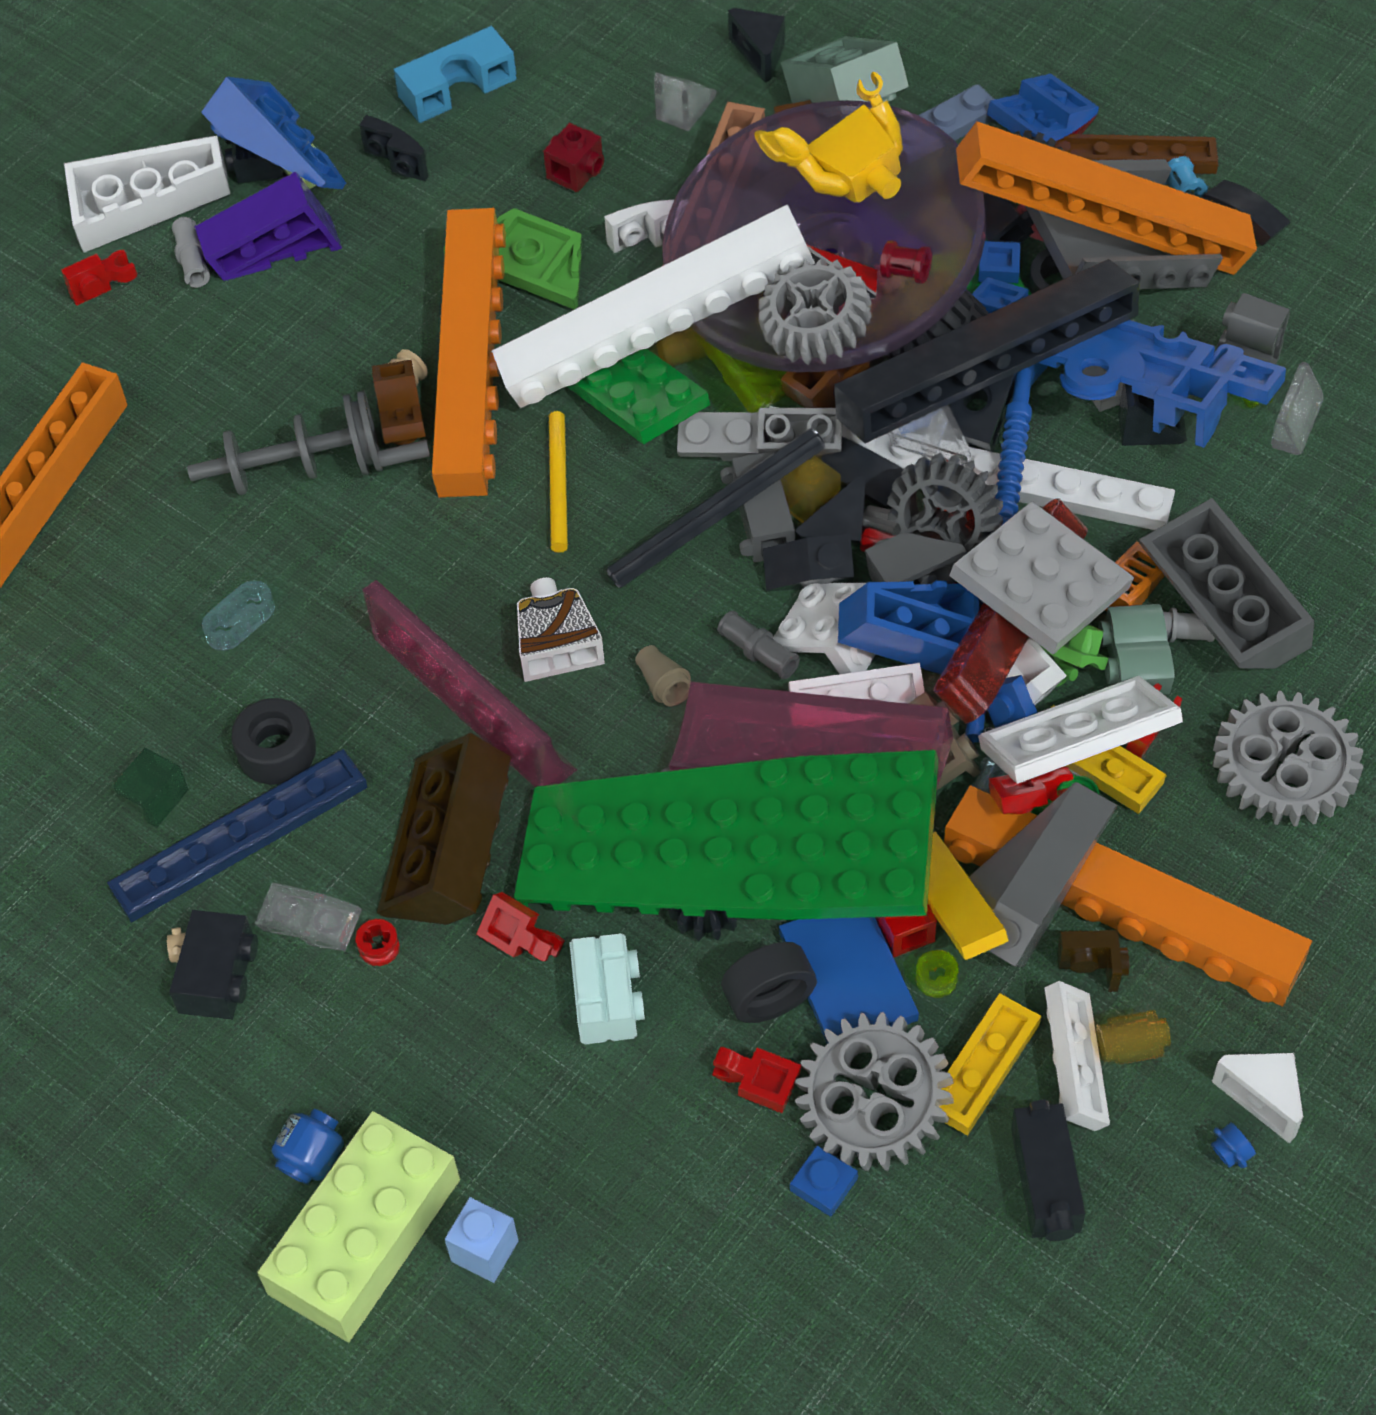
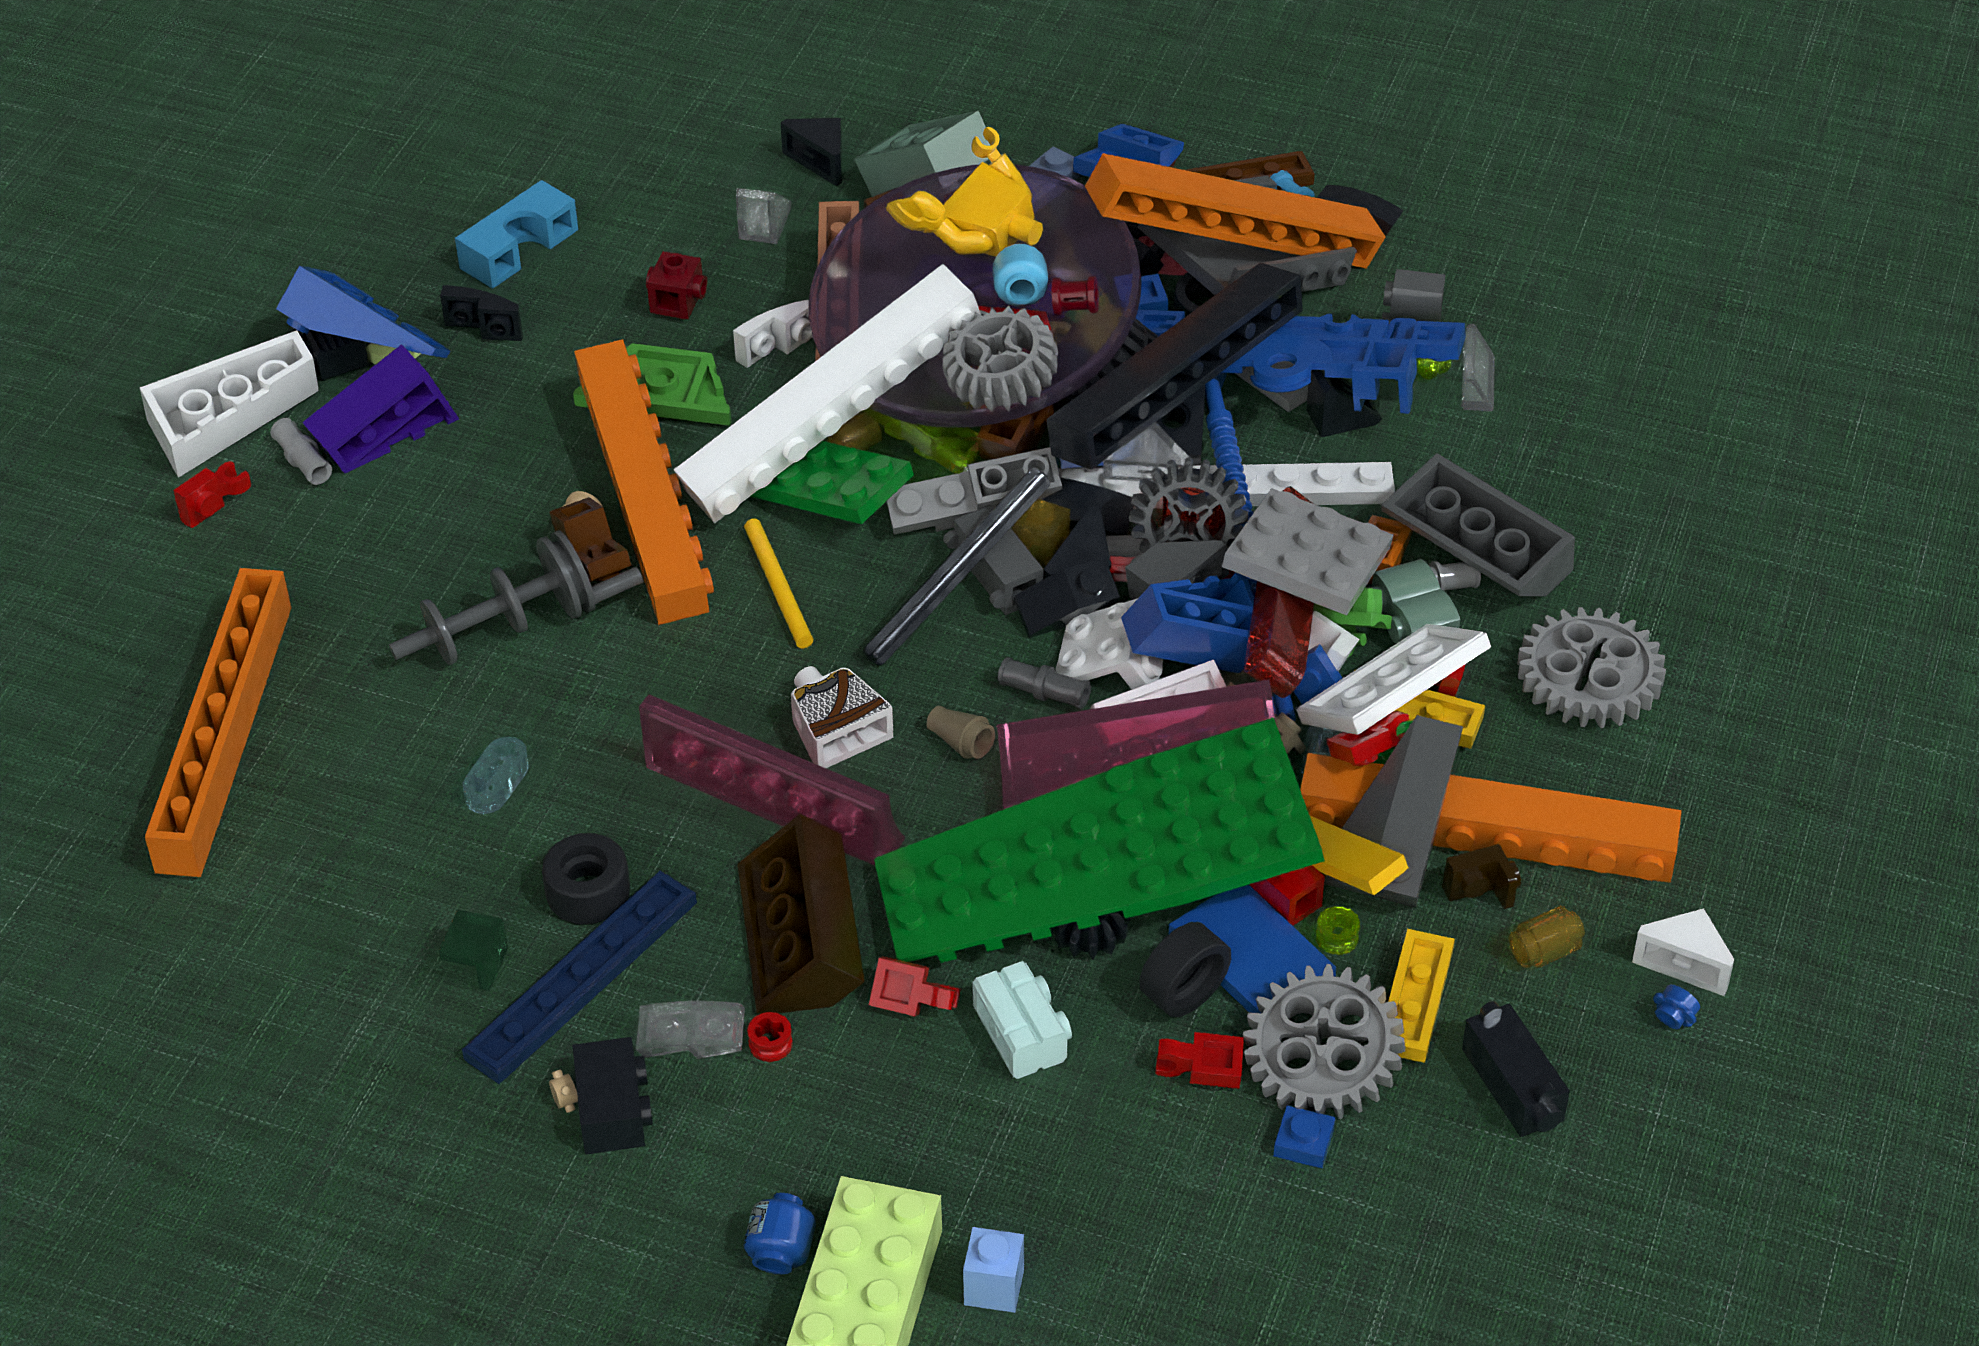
camera: 20 degrees left, 10 degrees down
(862, 228) = (1020, 275): none -> medium azure head
(1076, 1056) = (1500, 964): white plate -> none

